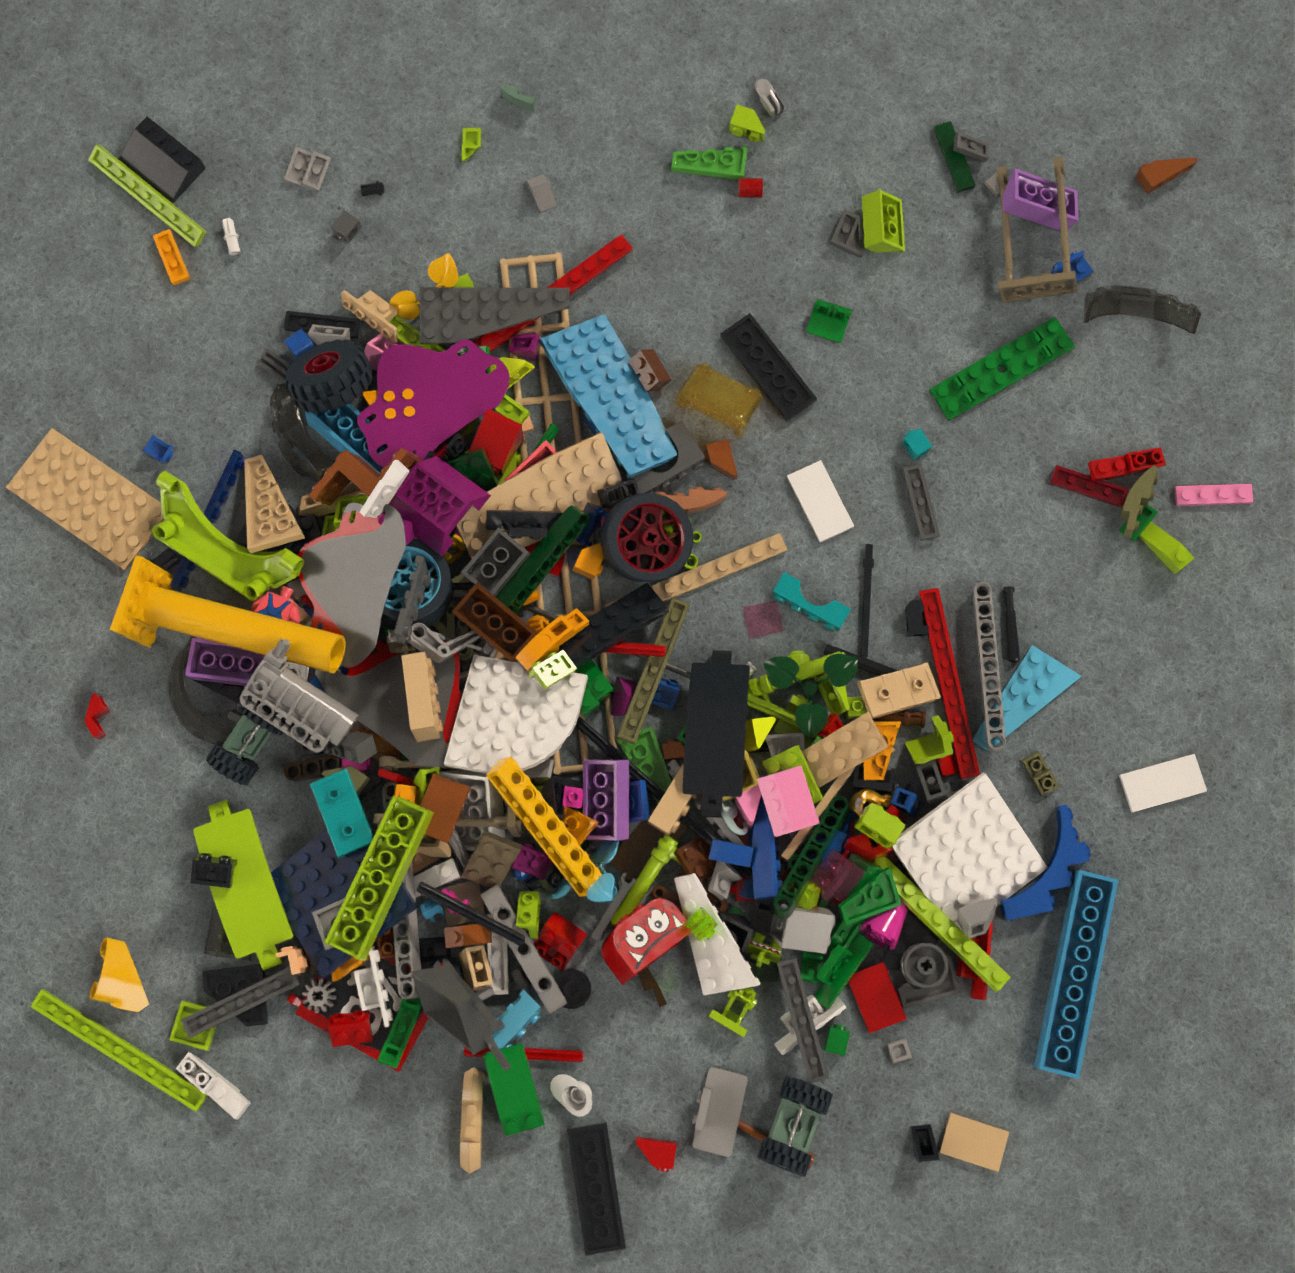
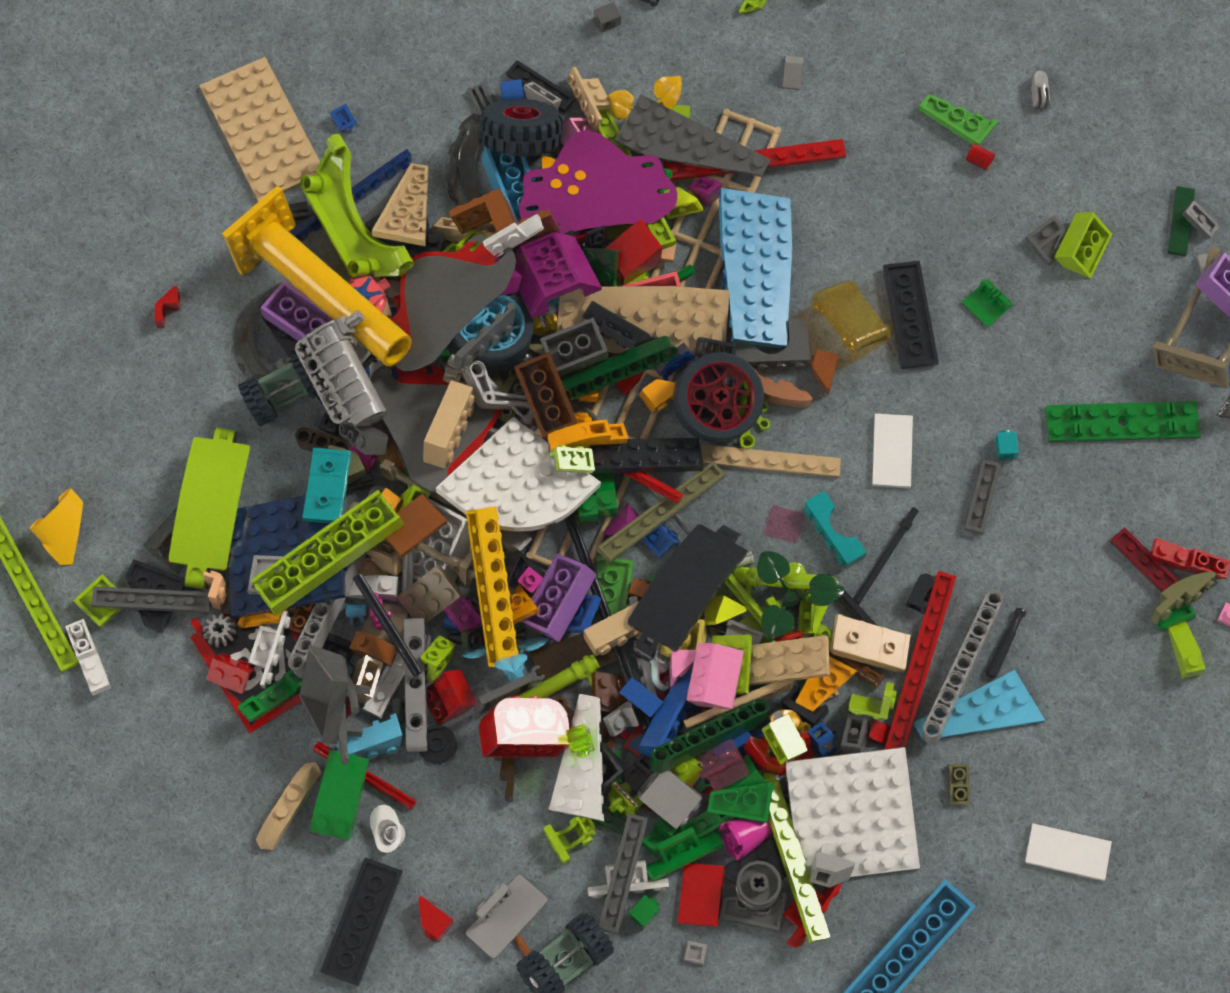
camera: 25 degrees right, 10 degrees down
(213, 870) = (191, 475): black bracket -> none
(396, 777) = (386, 482): red tile -> none
(651, 369) = (804, 263): reddish brown piece -> none
(746, 123) = (1007, 101): lime slope -> none
(1066, 852) = (893, 886): blue arch -> none

